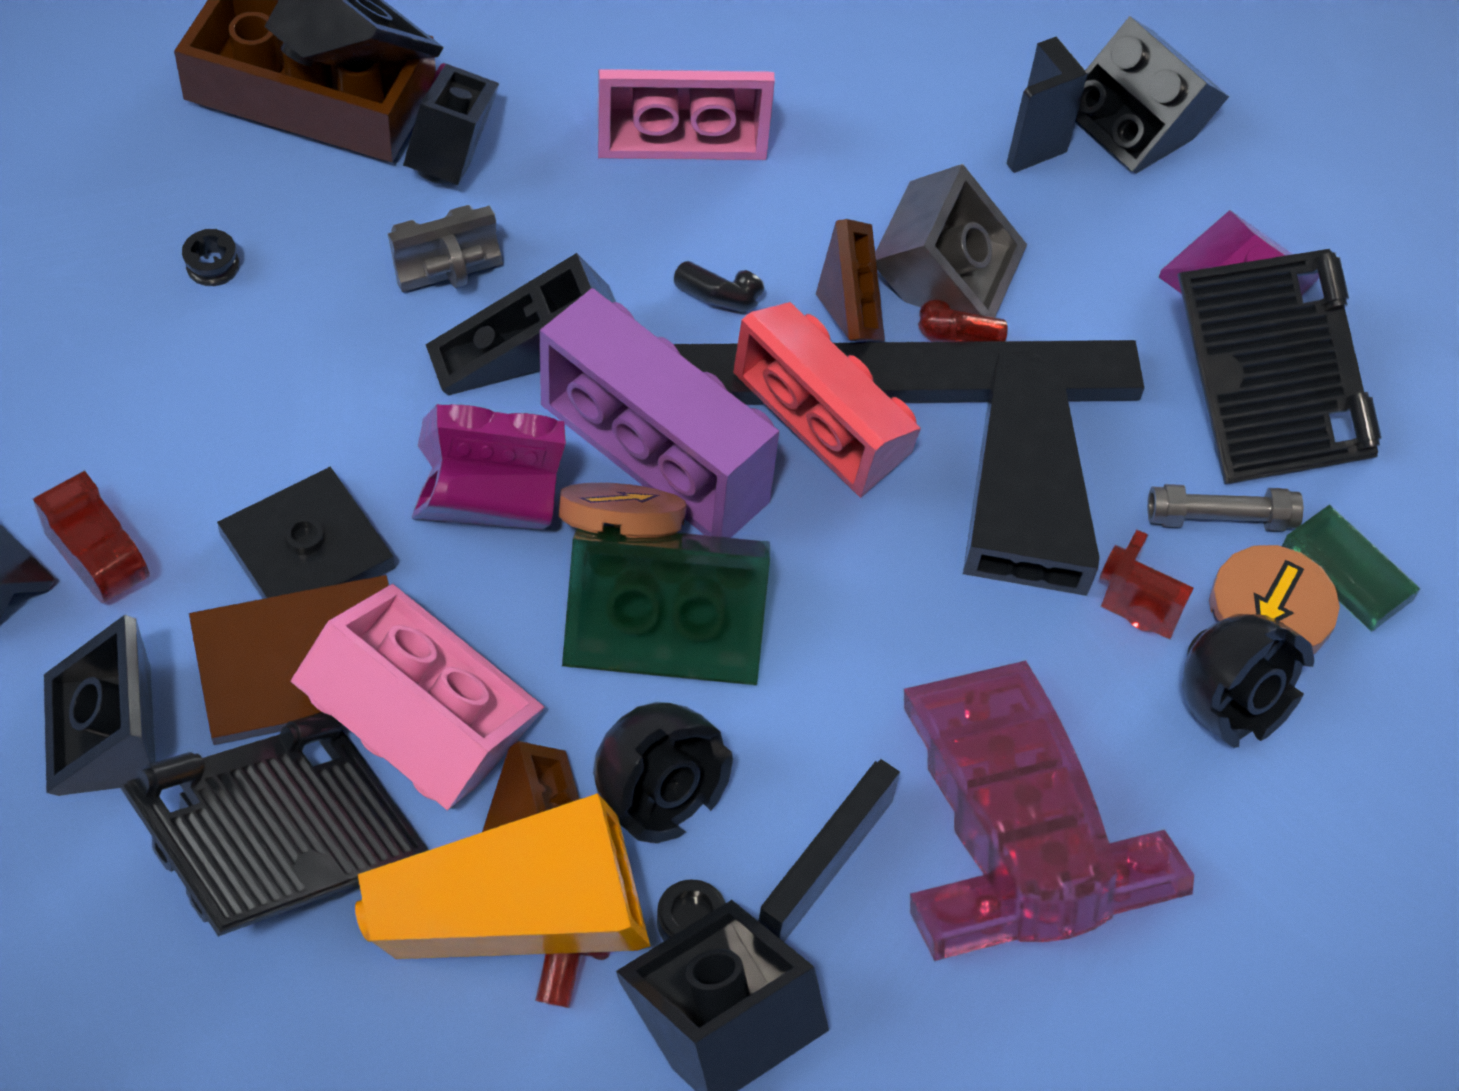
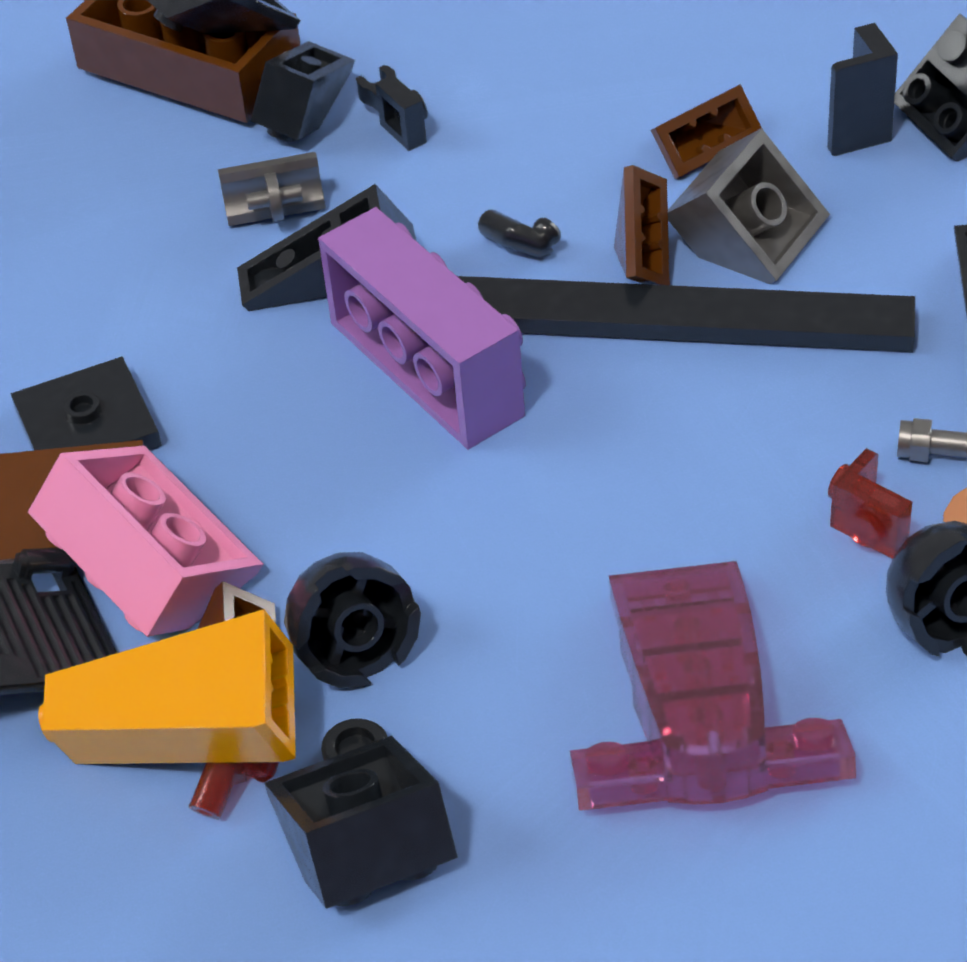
camera: 20 degrees right, 10 degrees down
(207, 242) = (75, 190): black bush -> none
(489, 467) = (255, 357): magenta piece -> none
(557, 140) = (399, 108): none -> black plate
(632, 508) = (372, 402): nougat tile -> none
(667, 605) = (396, 486): clear green slope -> none
(684, 114) = (516, 86): bright pink slope -> none
(824, 395) = (586, 317): coral slope -> none
(829, 850) = (497, 704): black tile -> none
(884, 151) = (705, 130): none -> reddish brown slope
(944, 324) = (727, 271): clear red arm -> none
(1030, 489) = (767, 413): black slope -> none

